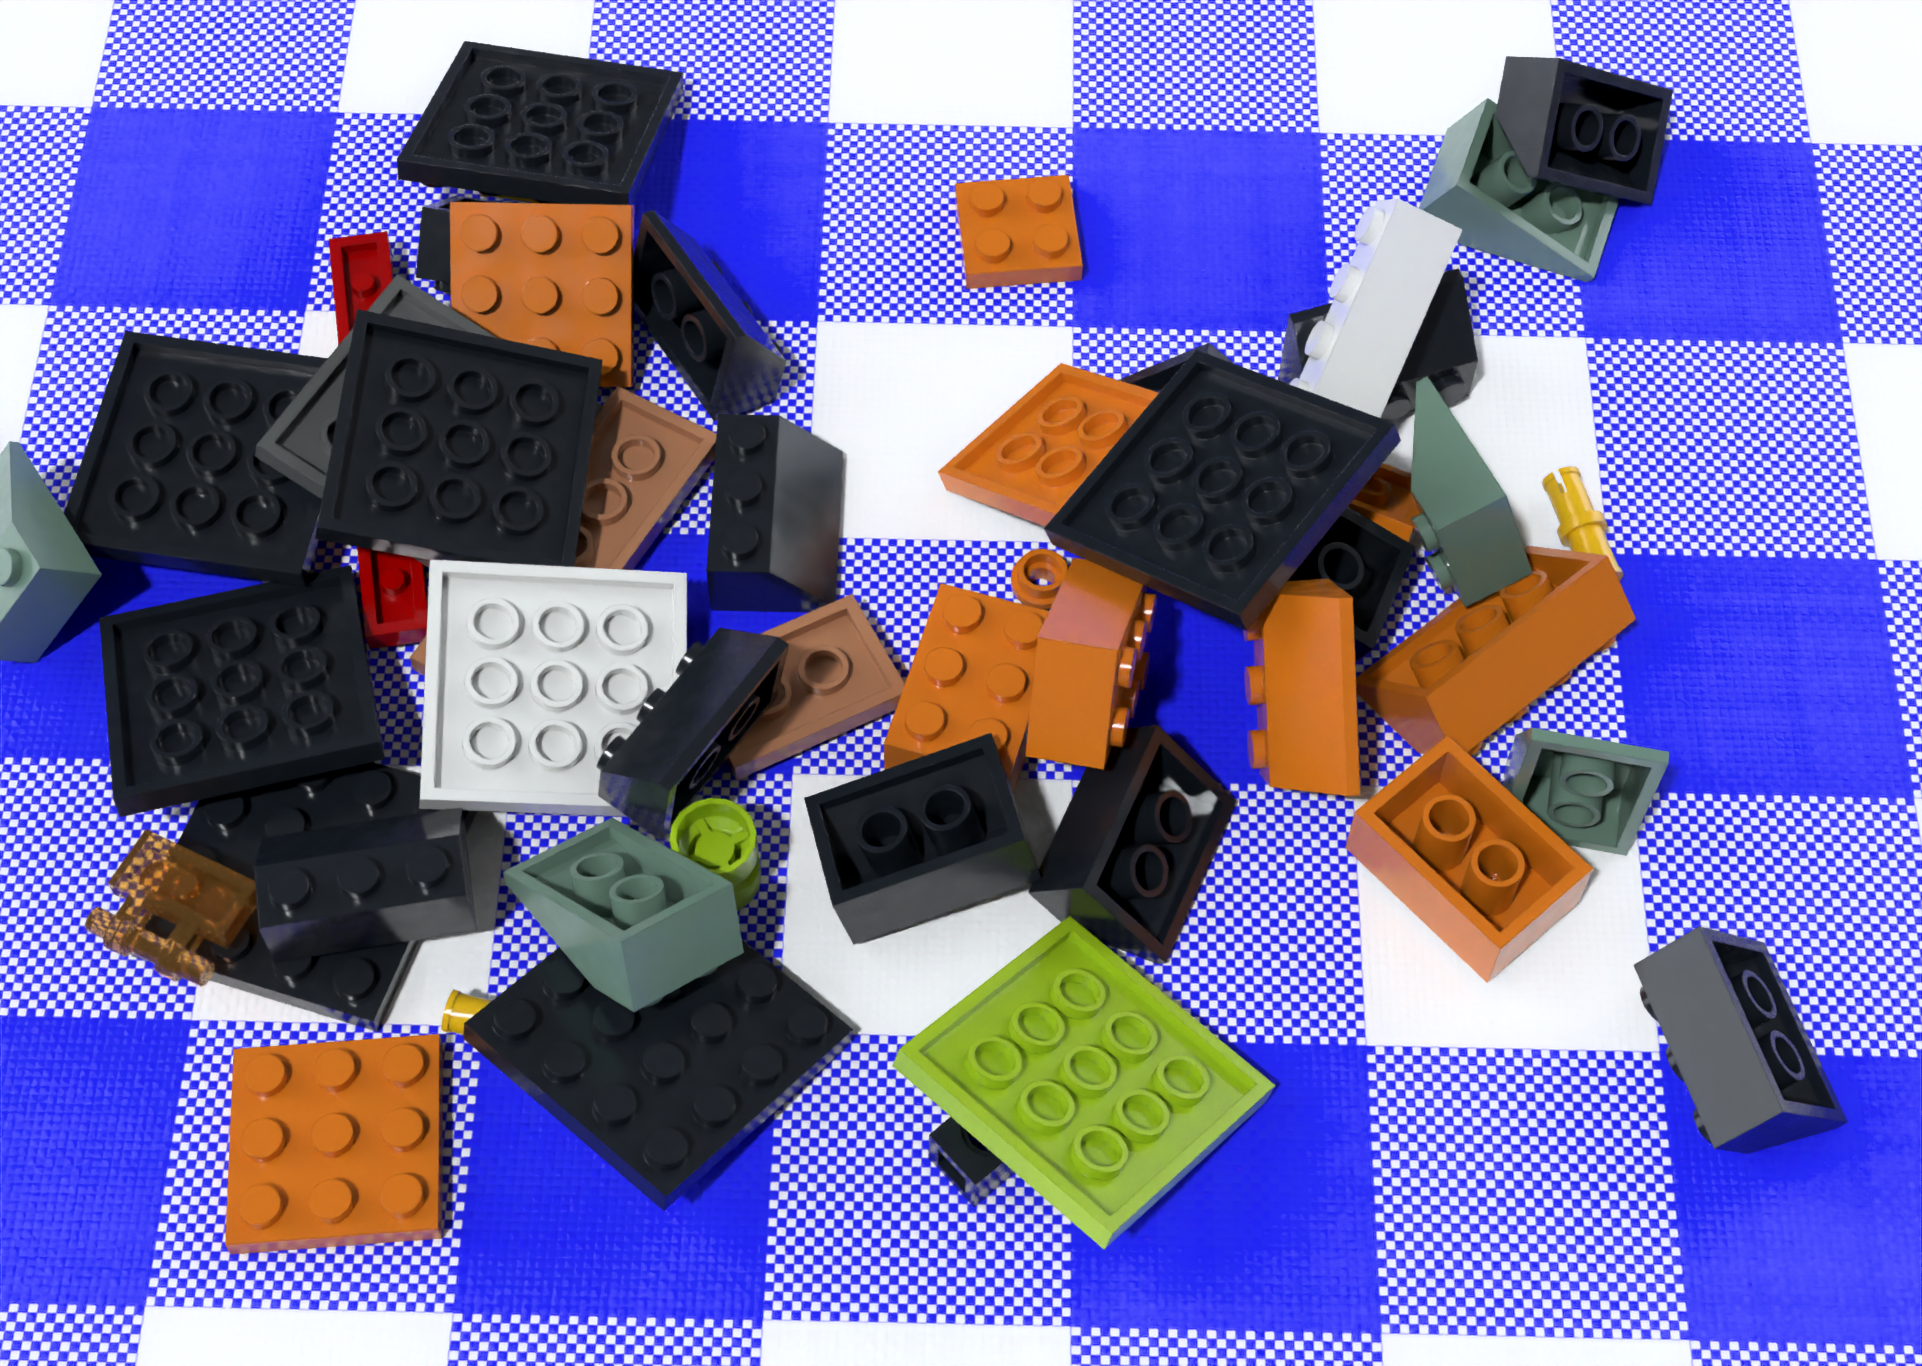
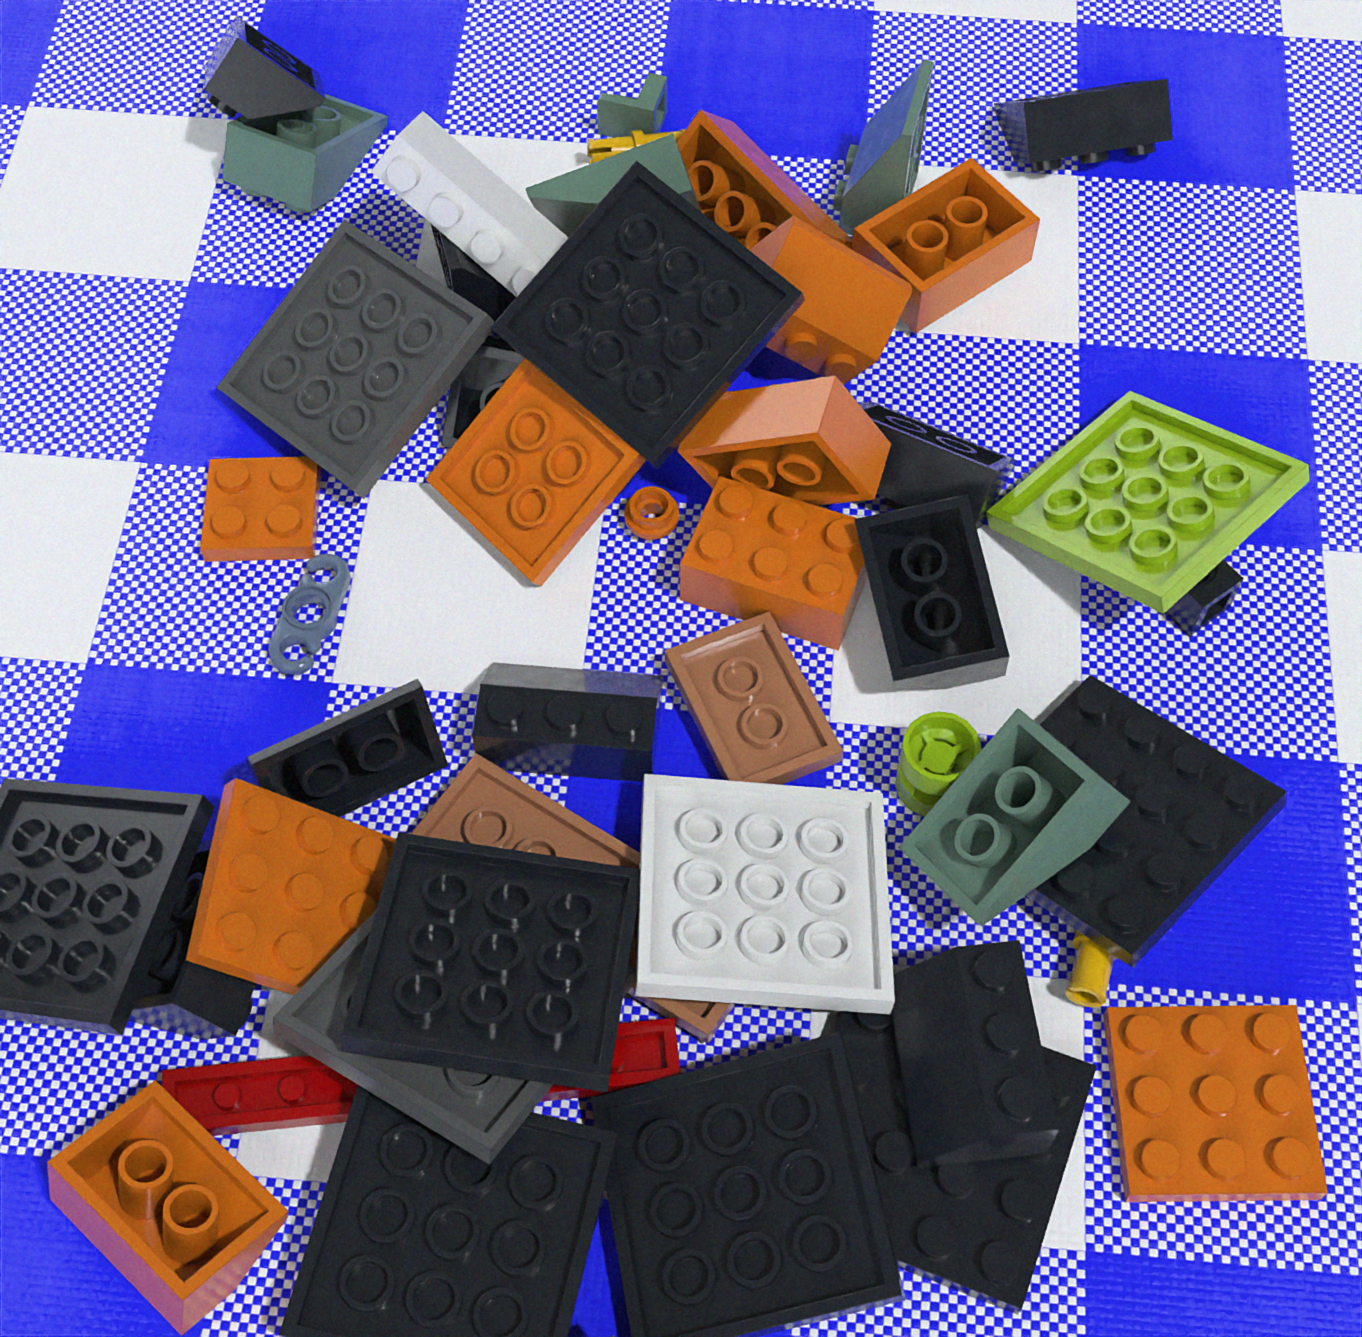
camera: 85 degrees left, 0 degrees up
(179, 887) = (983, 1233): clear orange plate -> none
(253, 242) = (165, 1205): none -> orange slope
(691, 727) = (834, 750): black slope -> none
(910, 302) = (292, 632): none -> sand blue piece
(1188, 262) = (356, 357): none -> dark grey plate
(1646, 525) = (622, 114): none -> sand green panel

